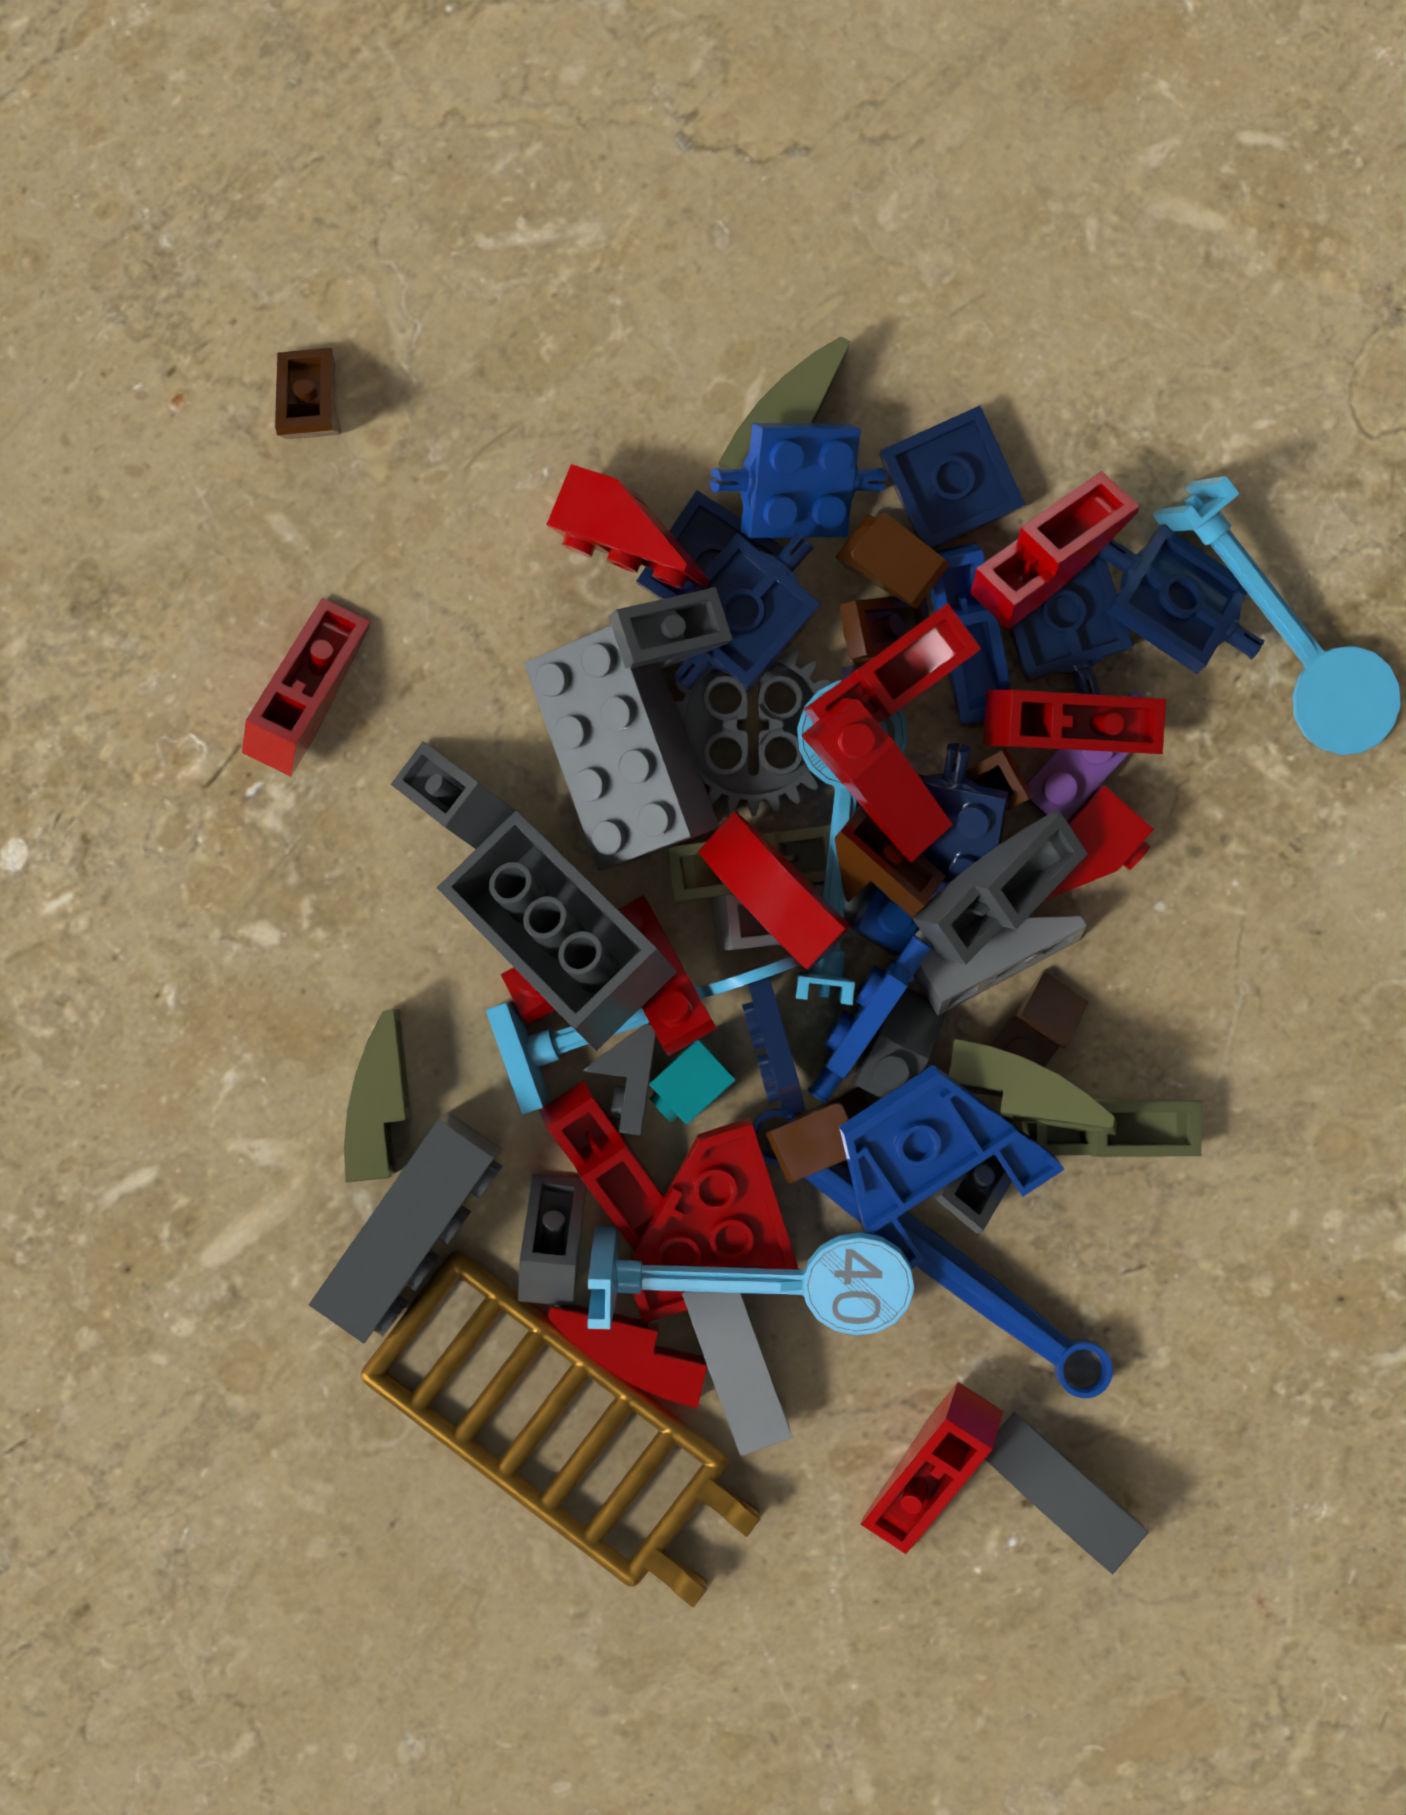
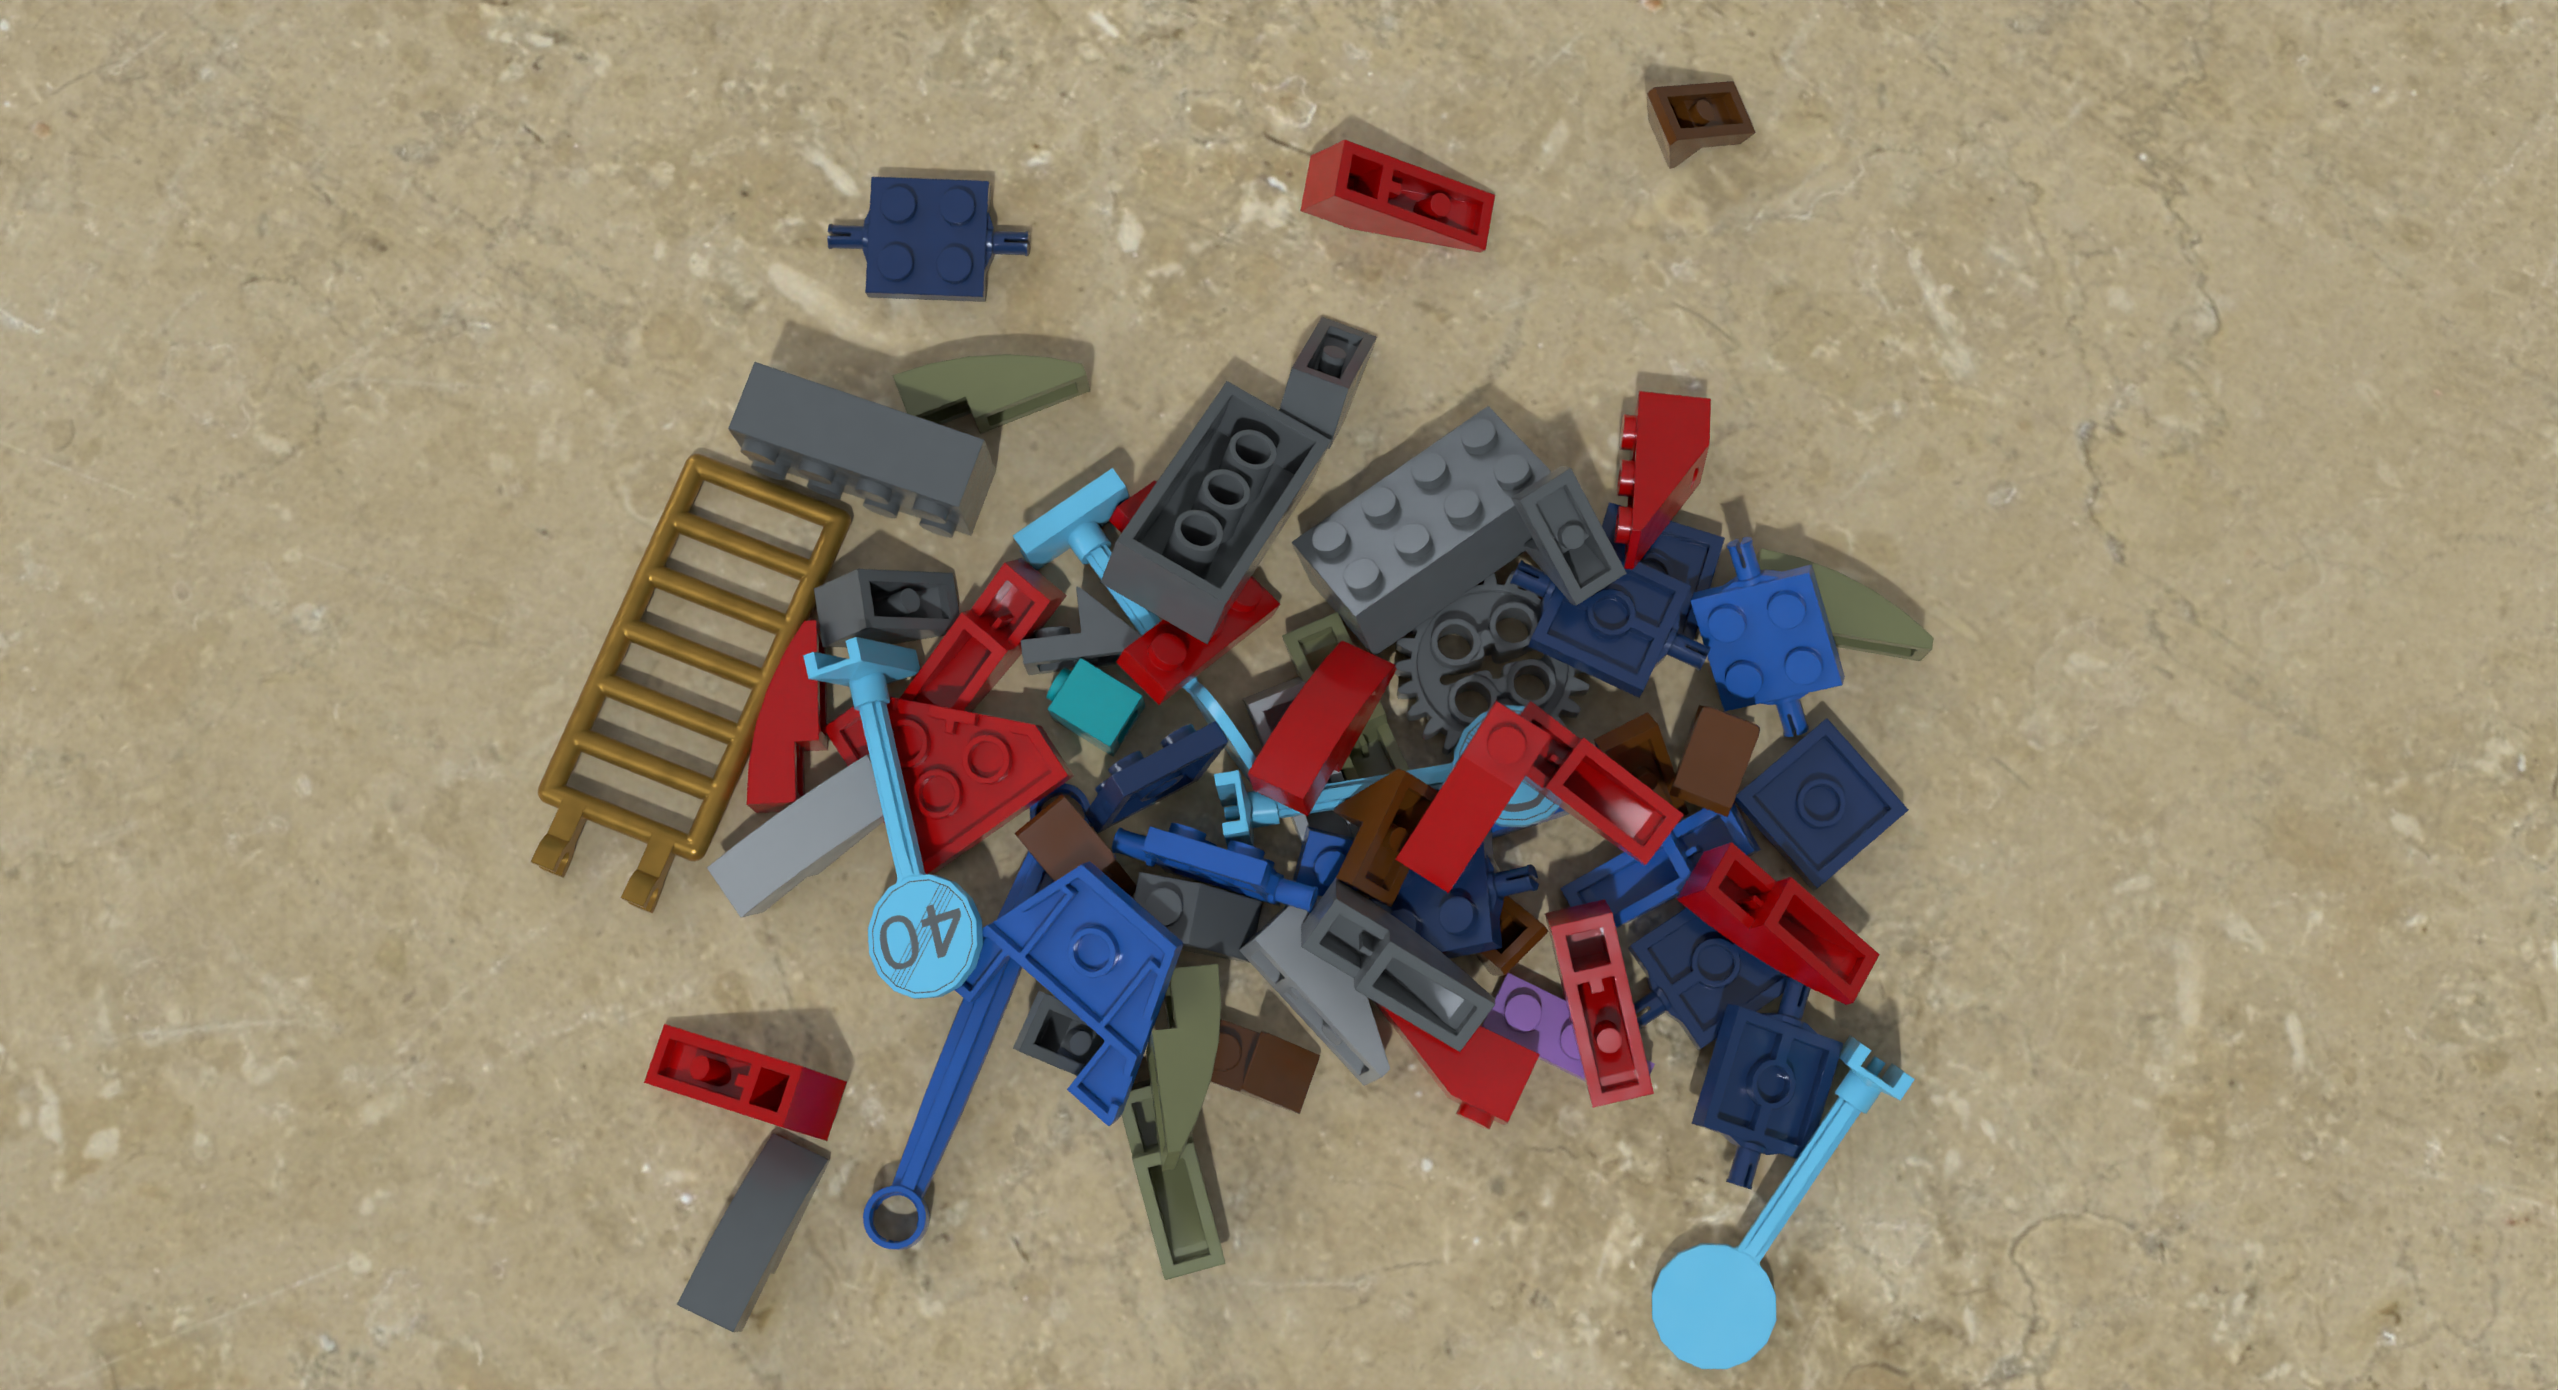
camera: 85 degrees right, 10 degrees down
(220, 1116) = (928, 239): none -> dark blue plate

